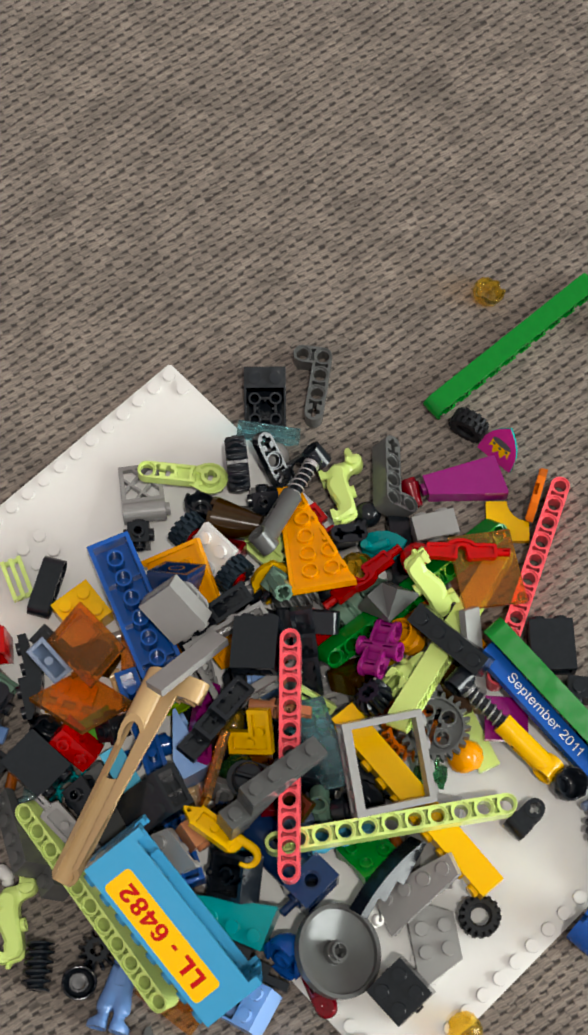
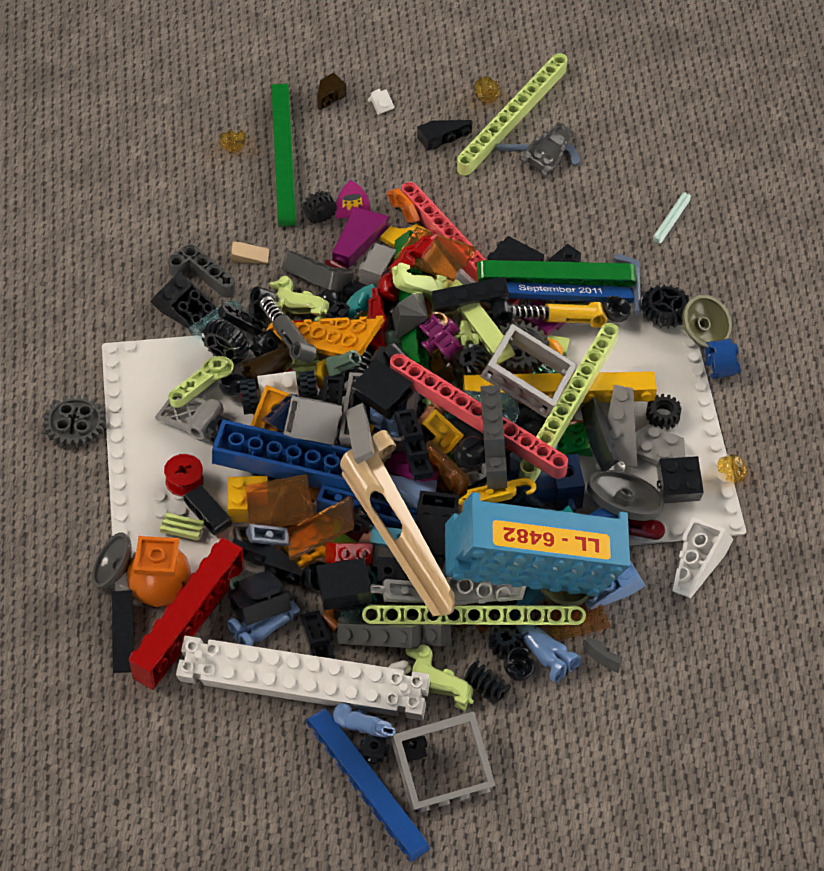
camera: 55 degrees left, 15 degrees down
(56, 393) = (87, 425): none -> dark grey gear
(67, 528) = (183, 474): none -> red piece
(369, 405) = (249, 253): none -> tan slope
(523, 821) = (622, 350): black piece -> none

